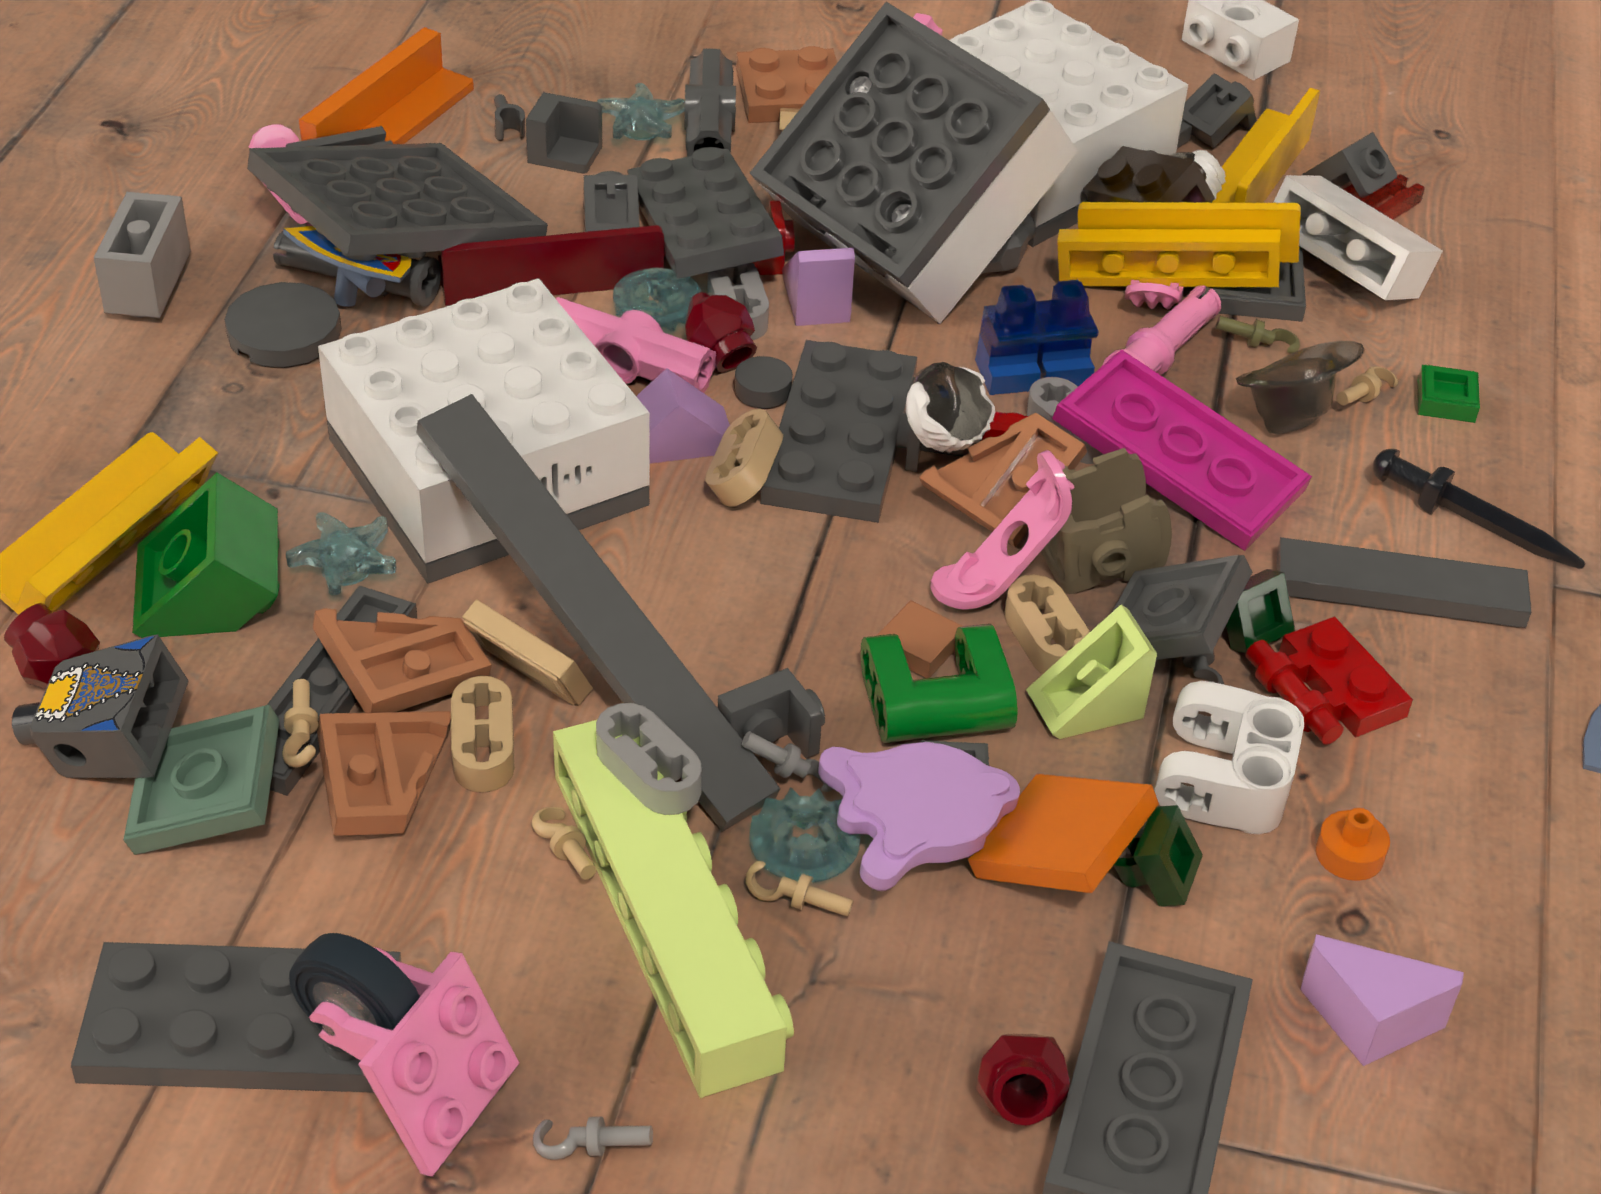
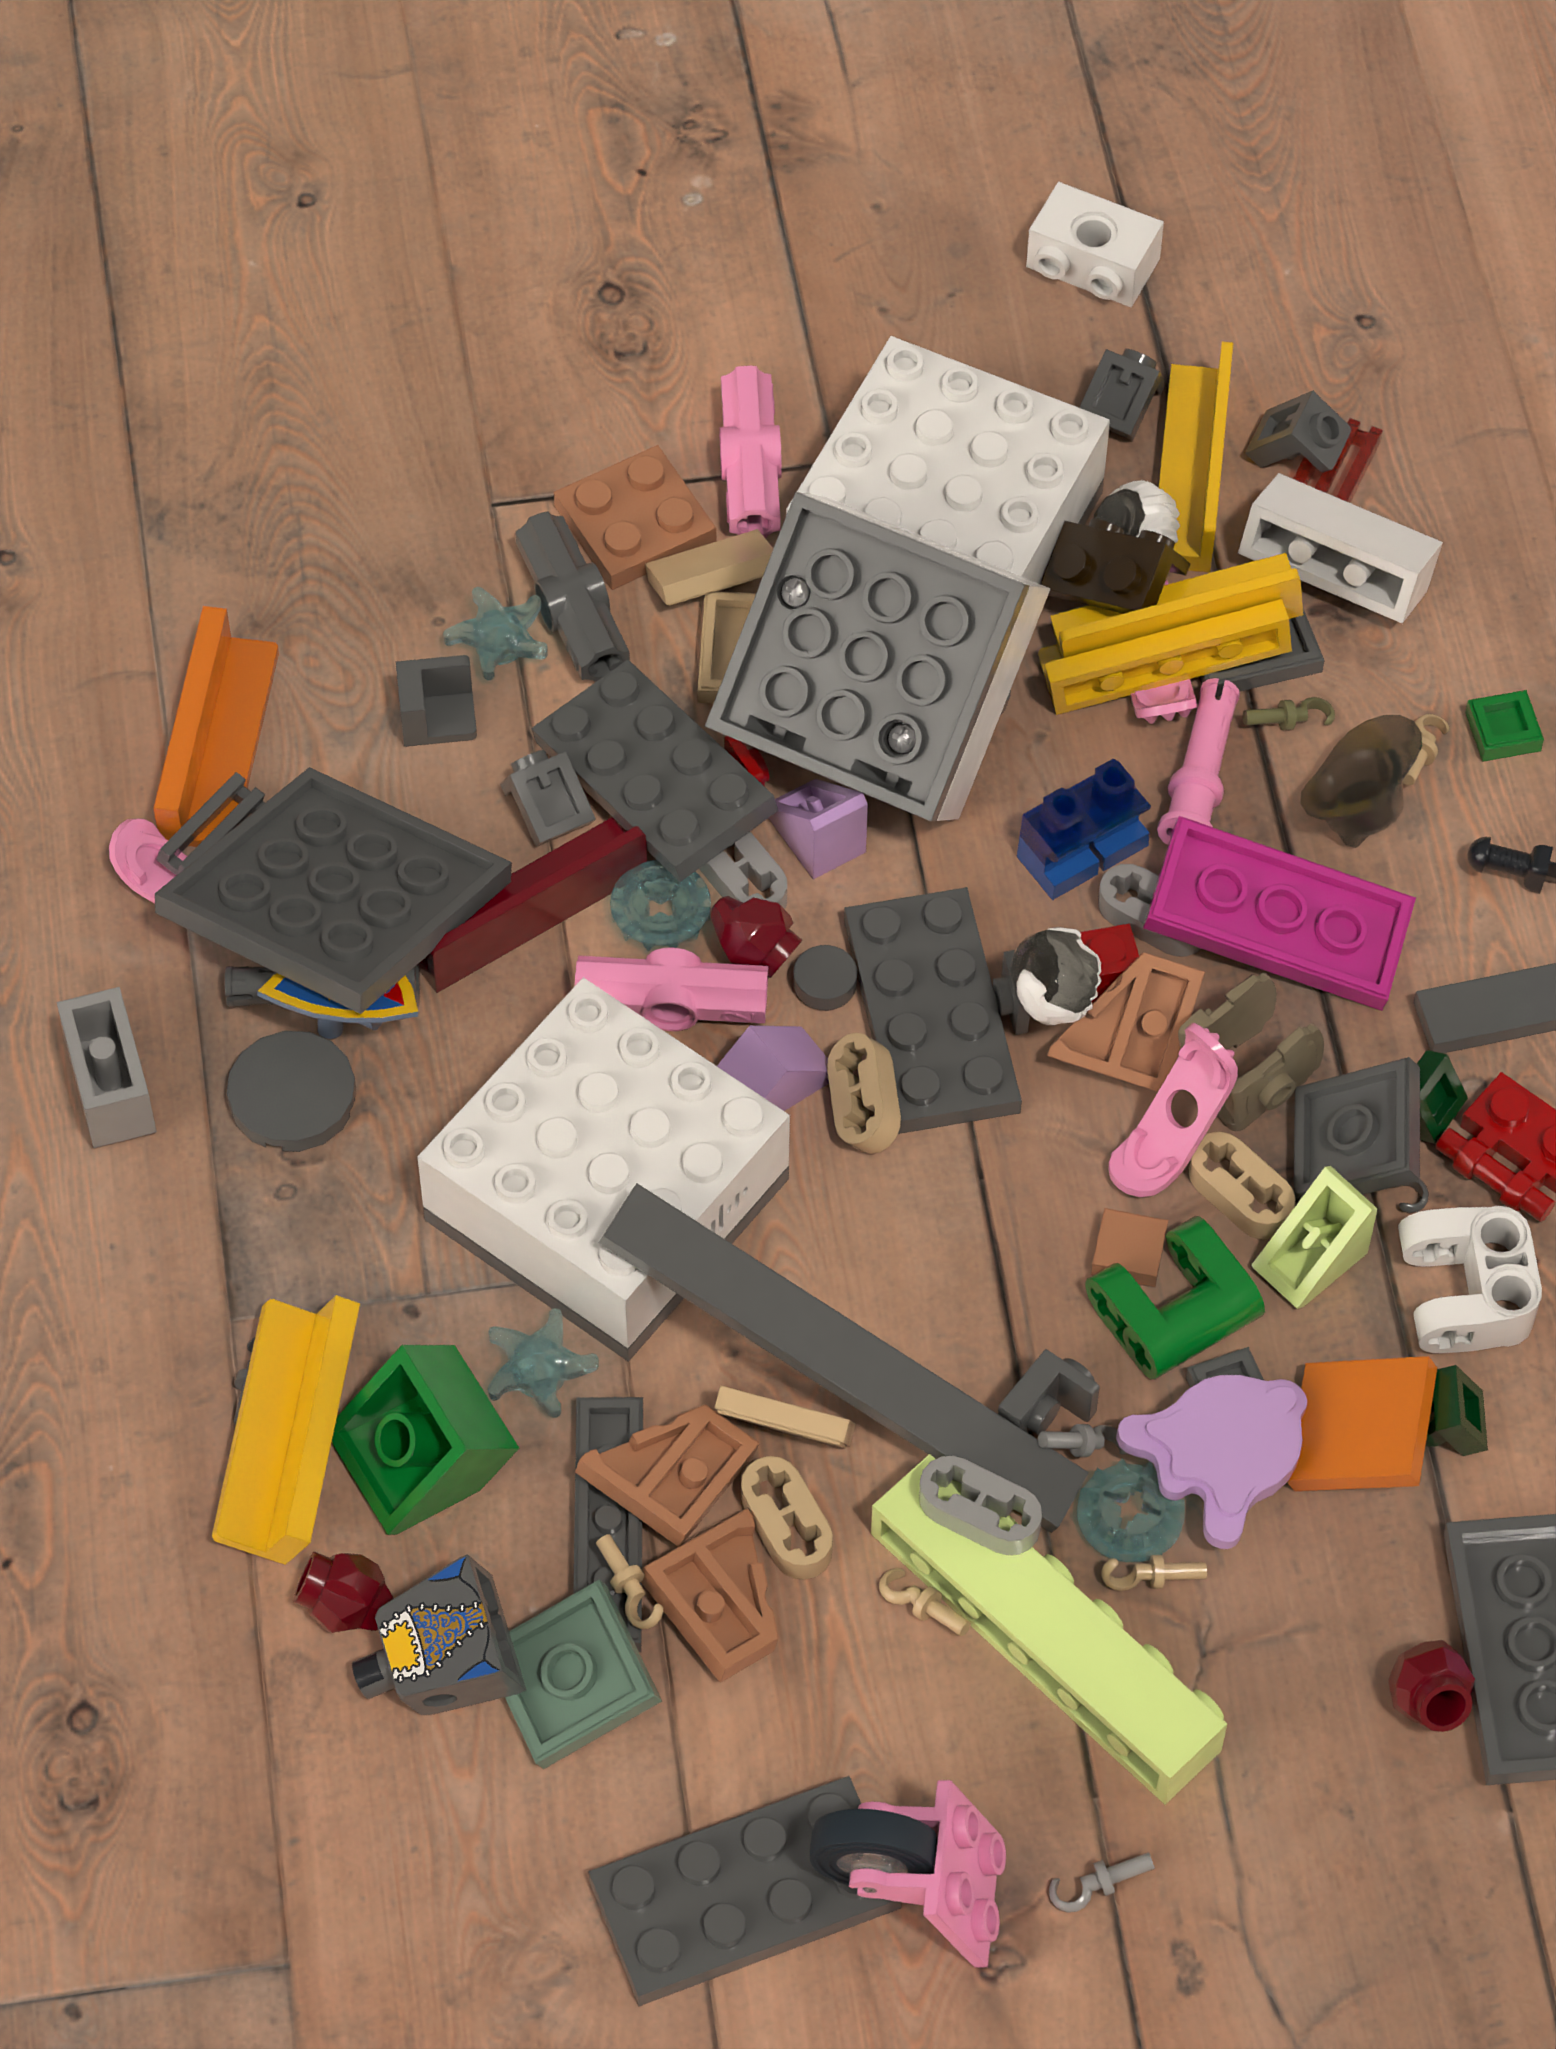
camera: 20 degrees left, 15 degrees up
(508, 117) = (350, 690): dark grey hand -> none

